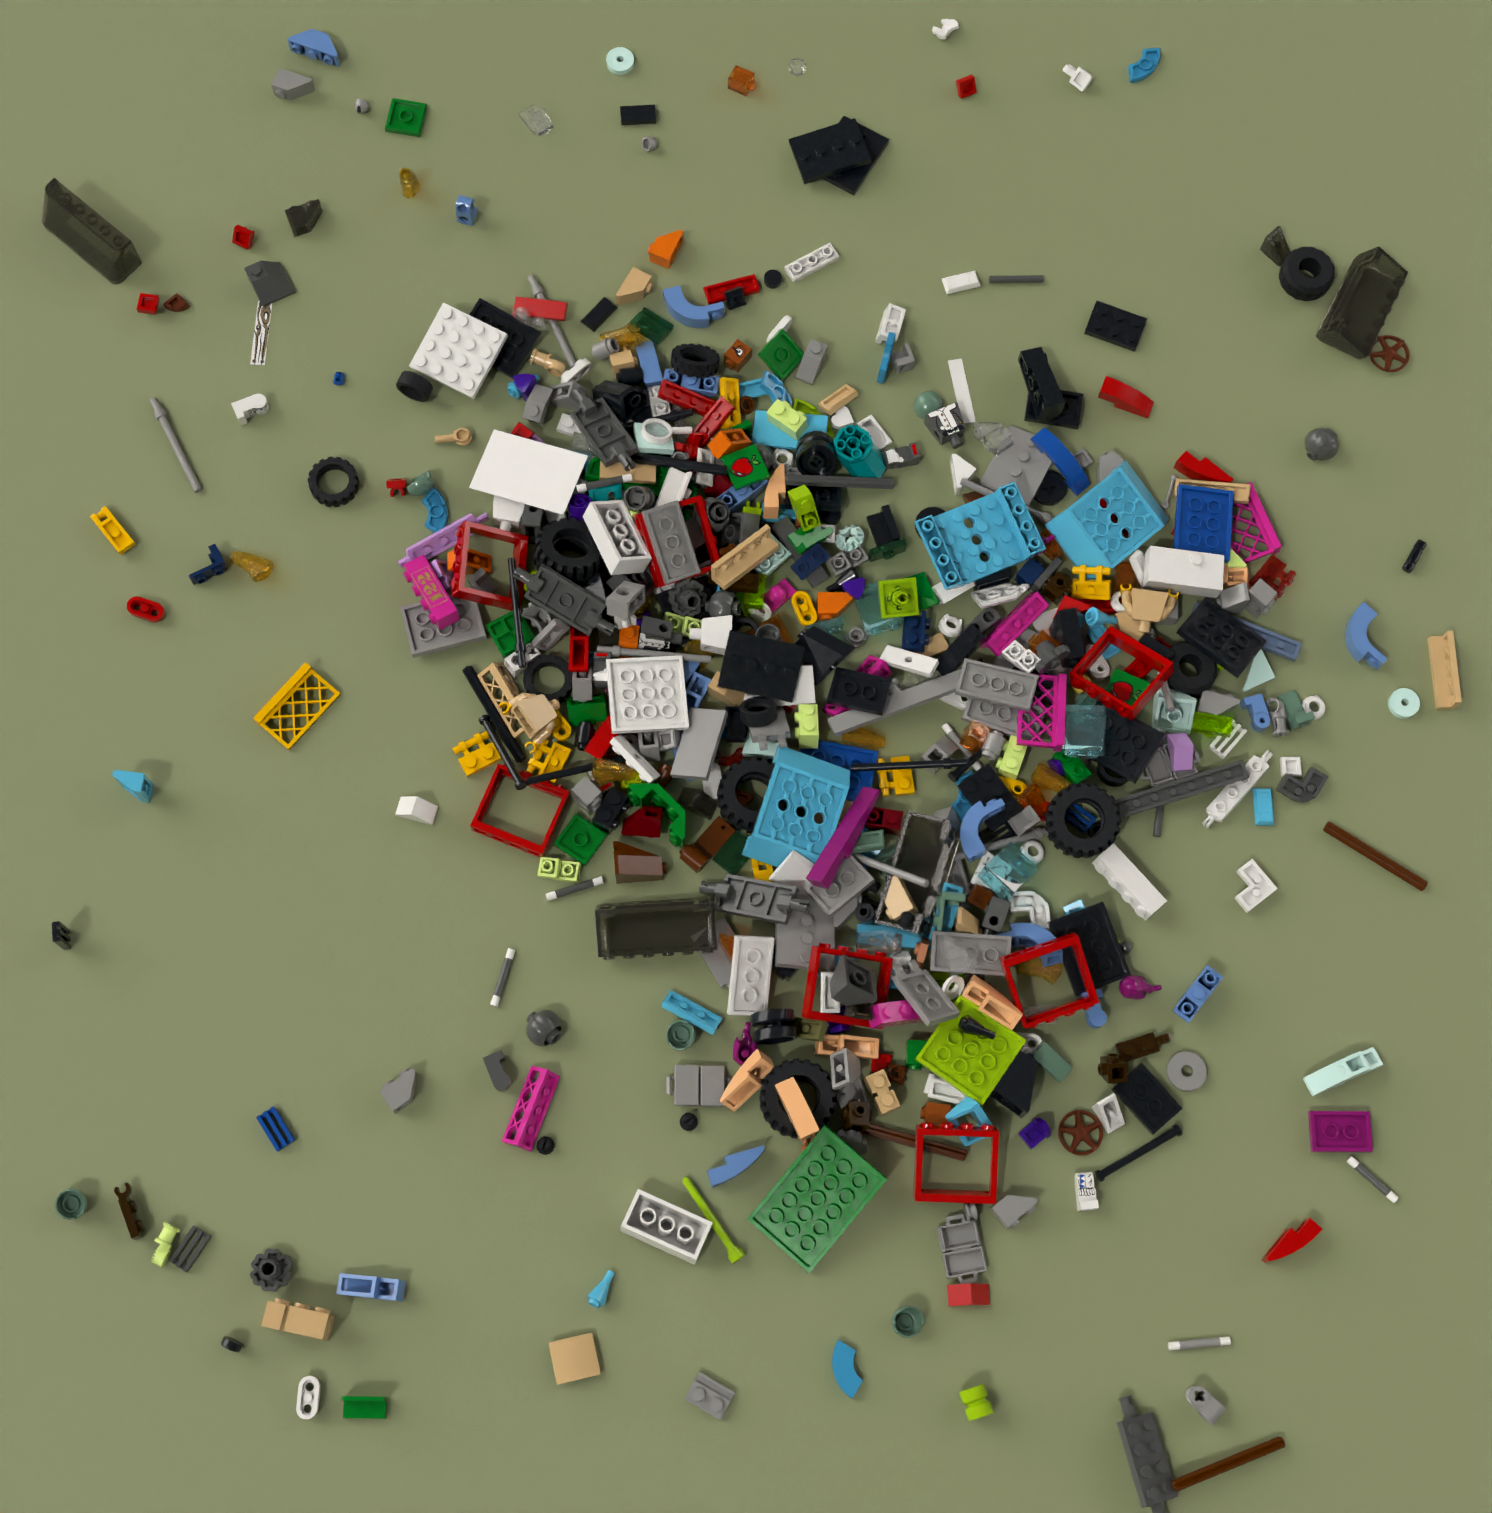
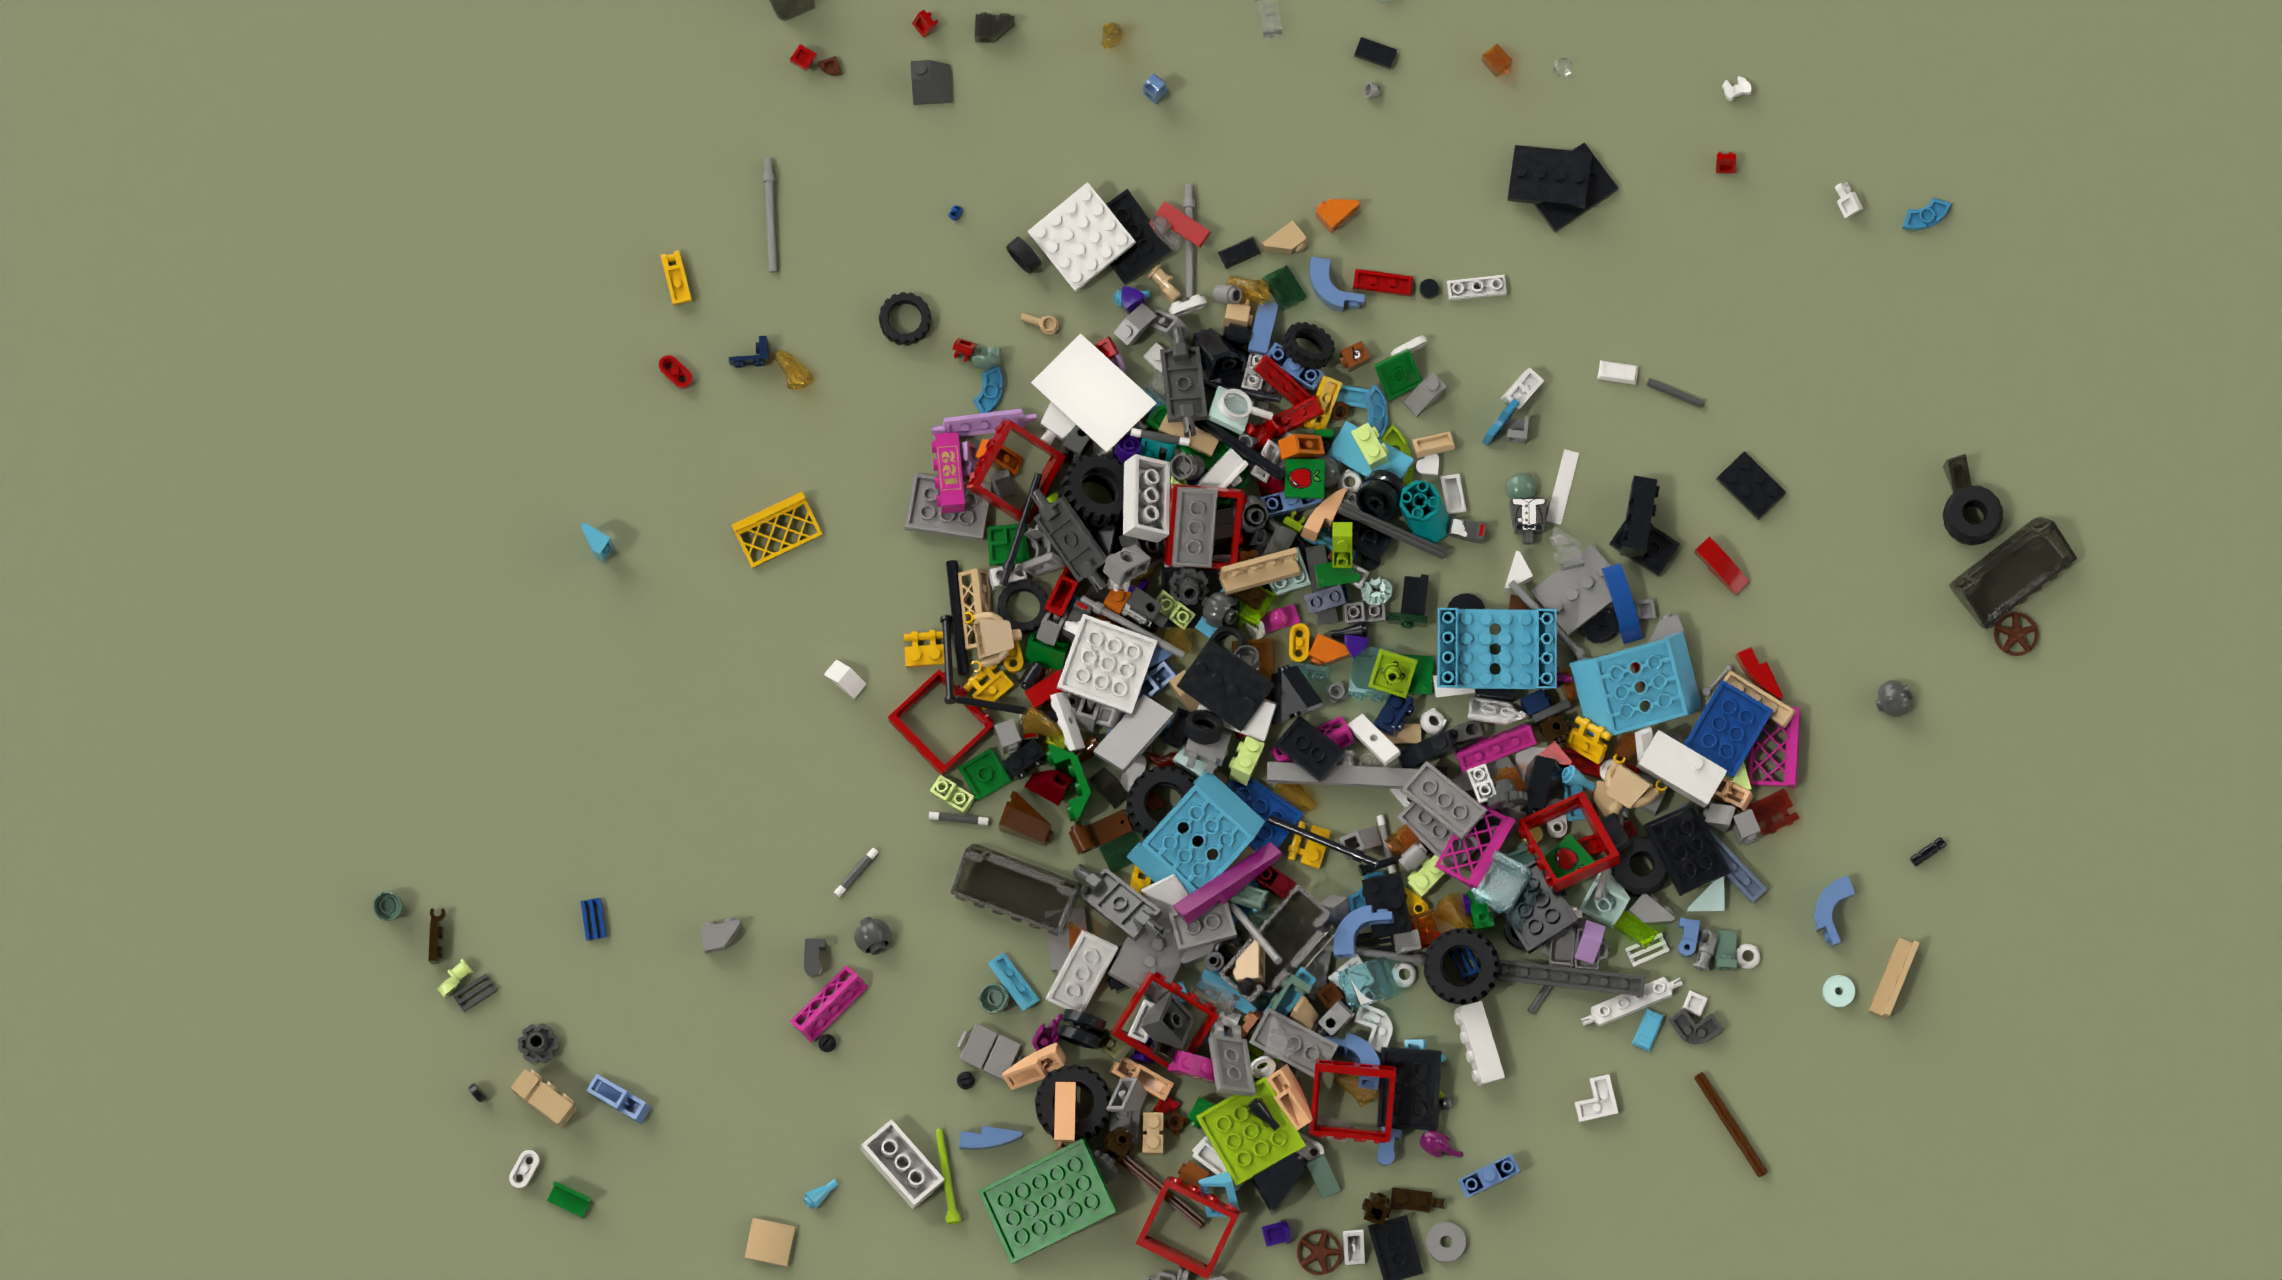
camera: 30 degrees right, 5 degrees up
(60, 936) = (474, 652): black tile -> none
(250, 407) = (857, 207): white leg -> none
(261, 334) = (899, 133): sticker -> none
(713, 633) = (1196, 631): white torso -> none
(734, 298) = (1380, 294): black tile -> none

